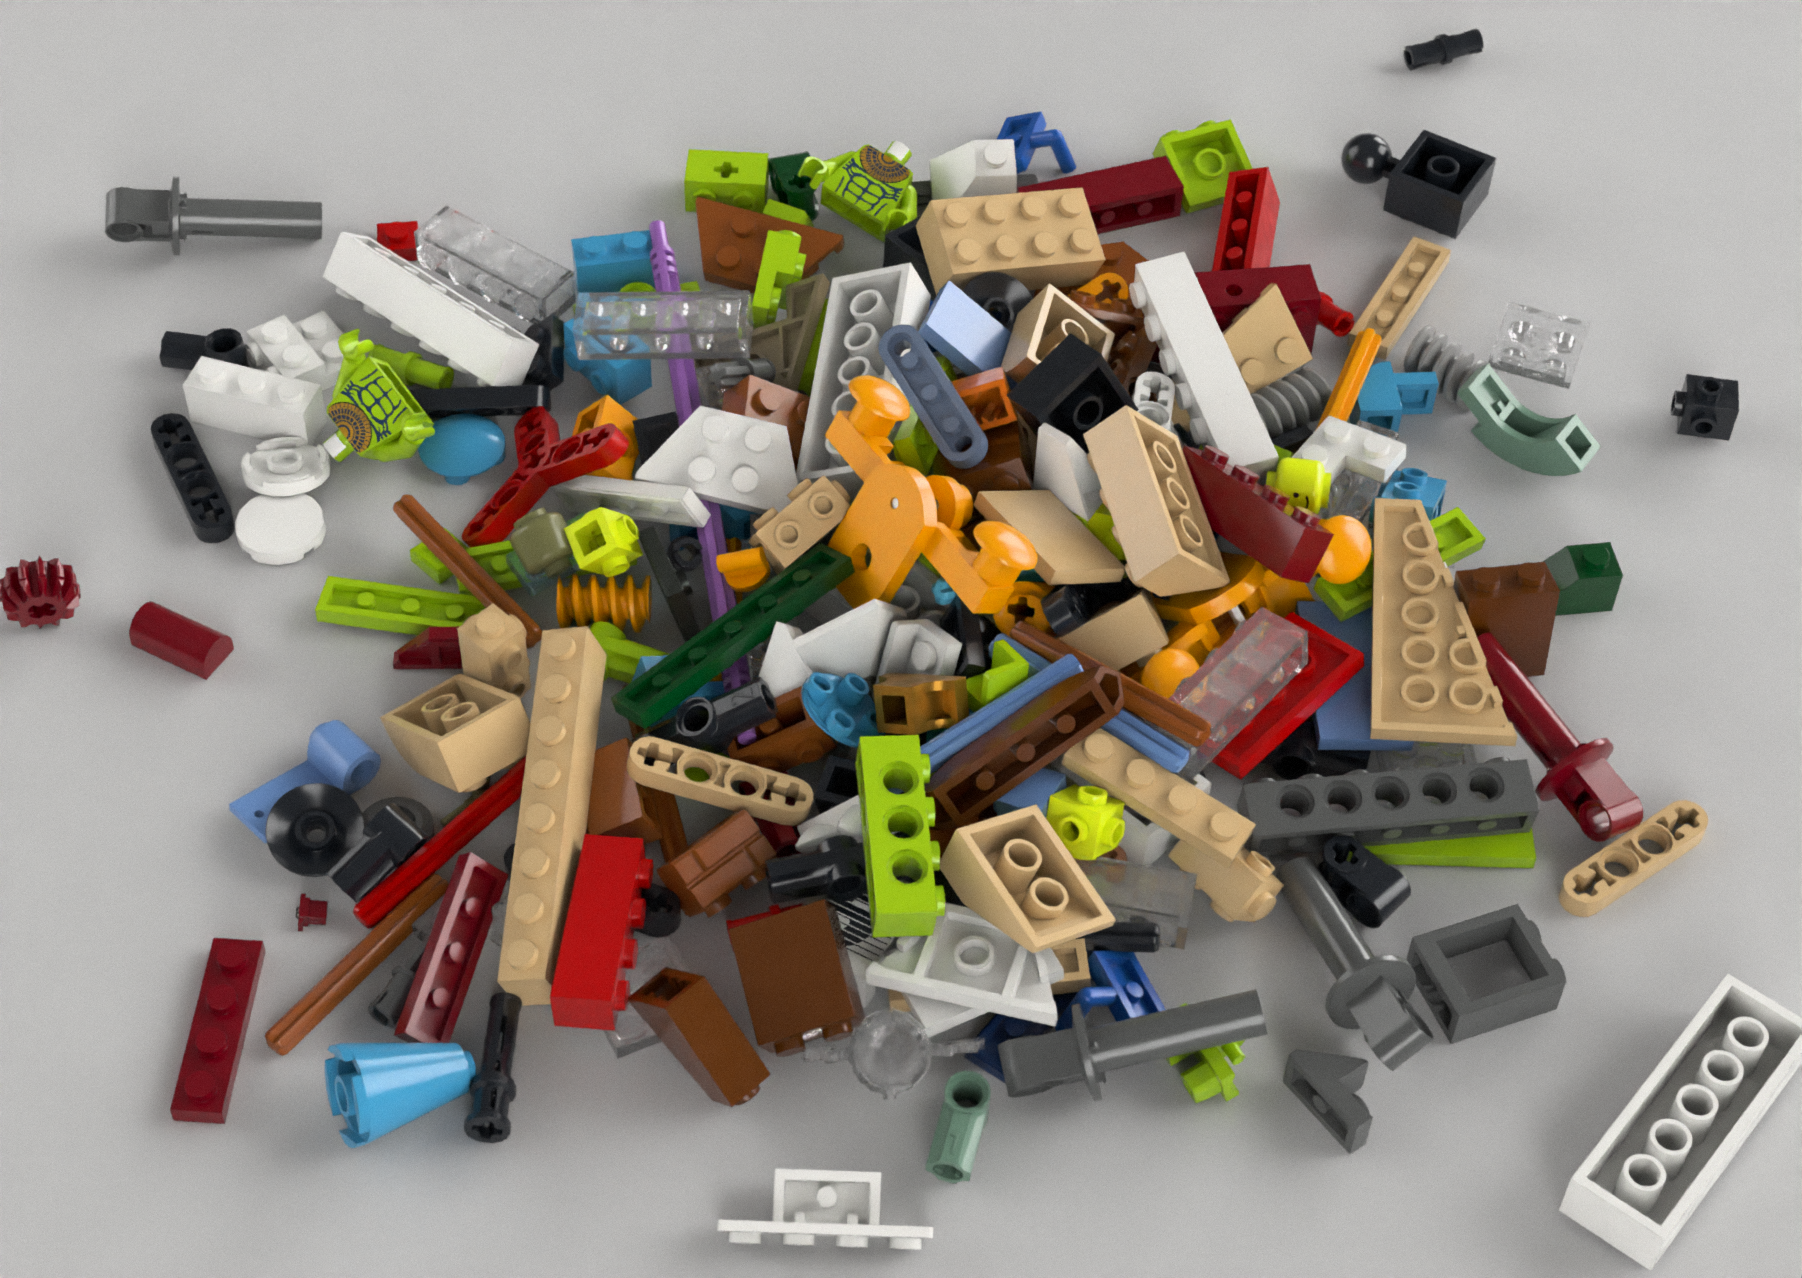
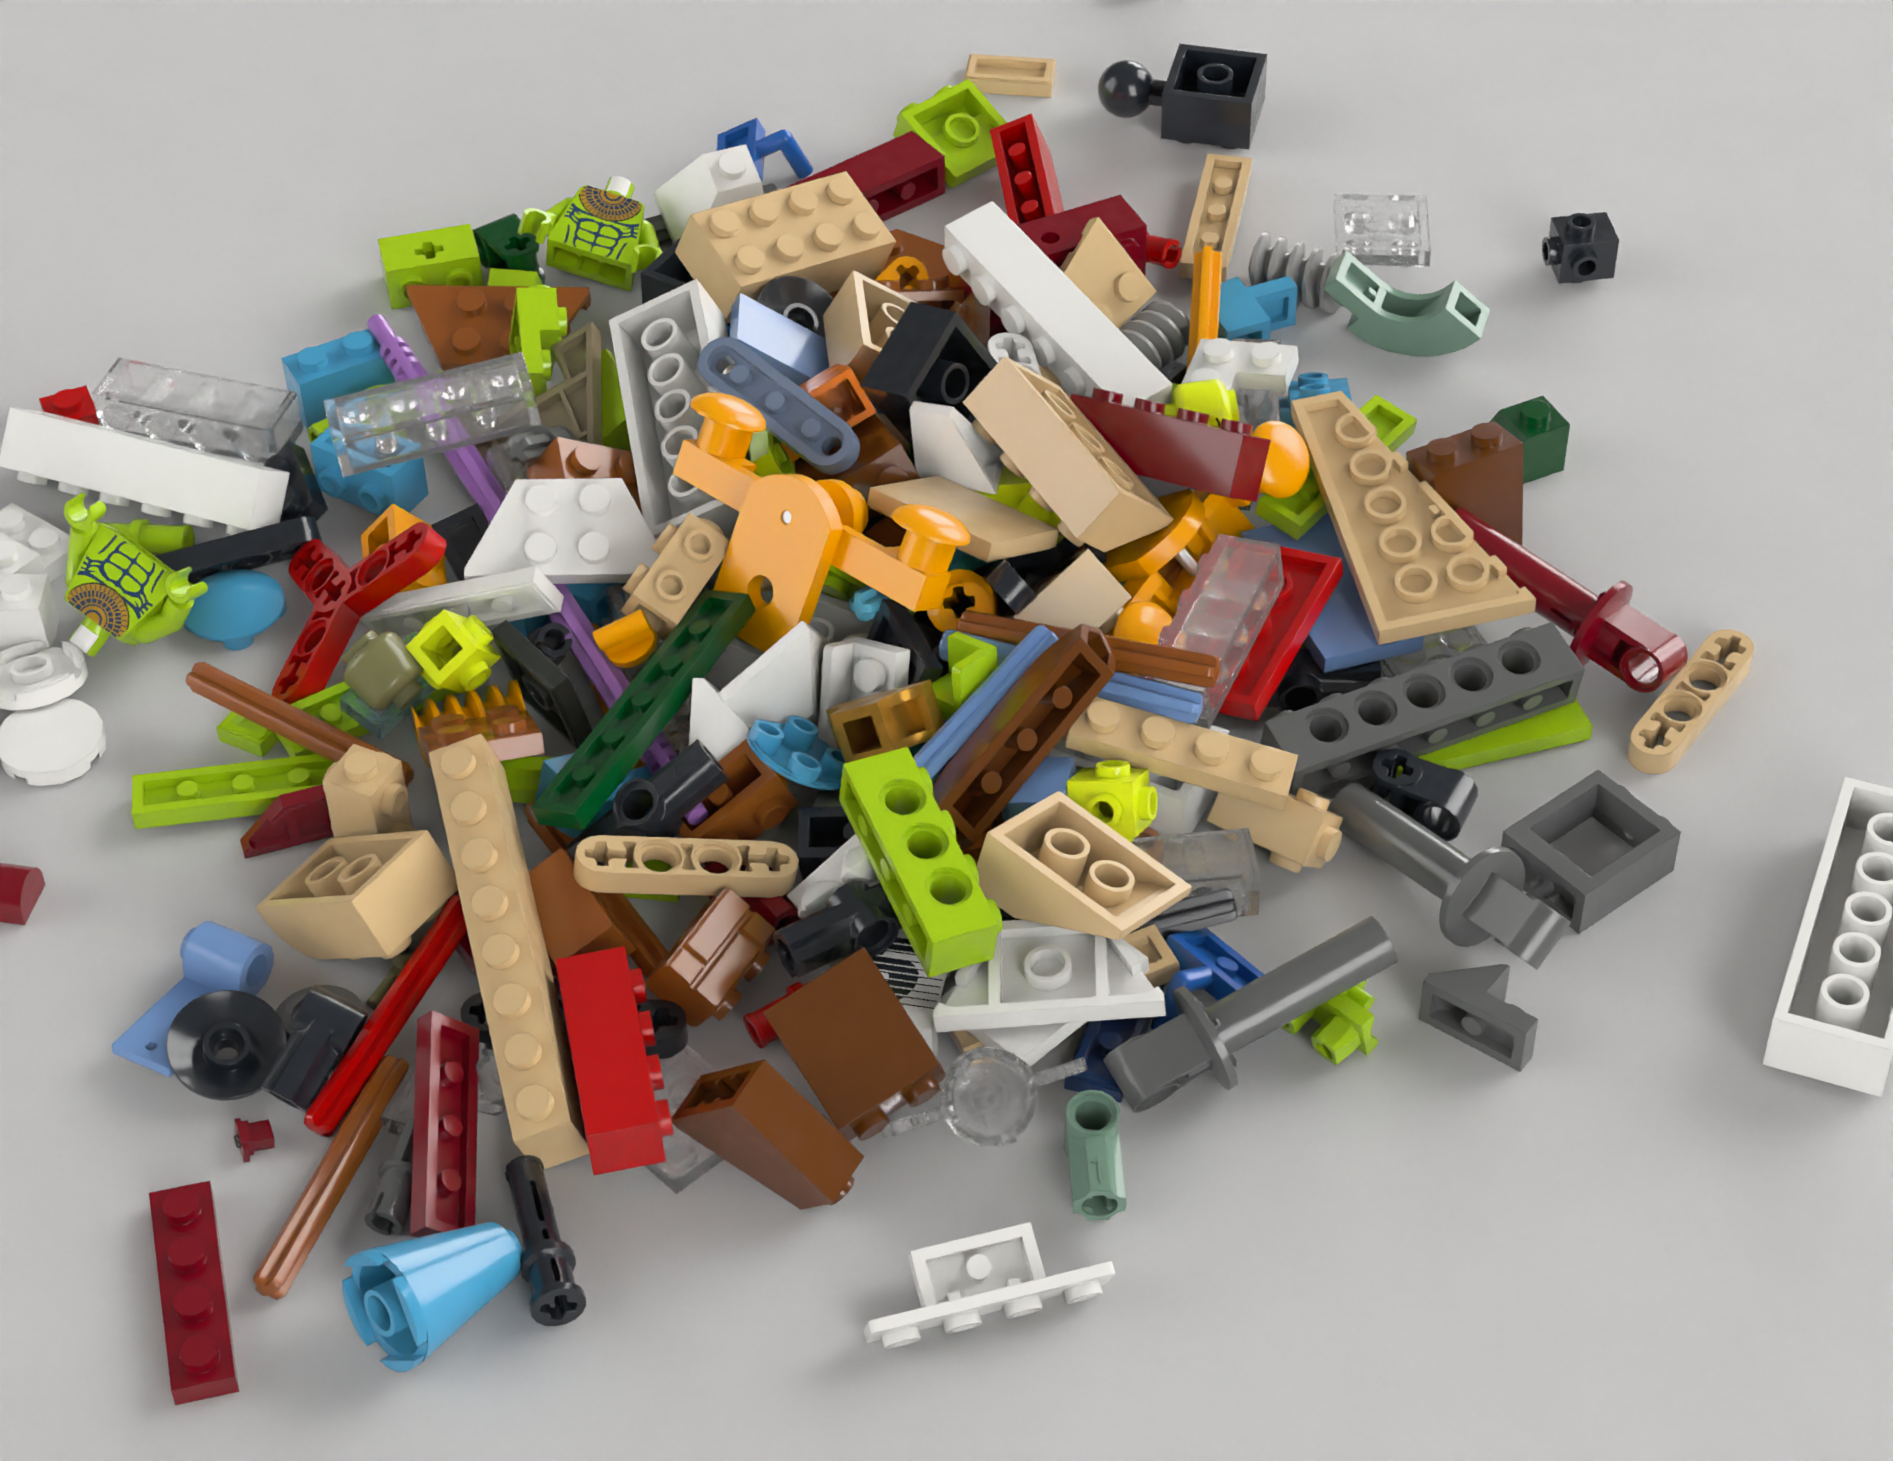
camera: 15 degrees left, 5 degrees down
(614, 624) = (504, 727): none -> dark orange plate
(1276, 119) = (1012, 75): none -> tan tile

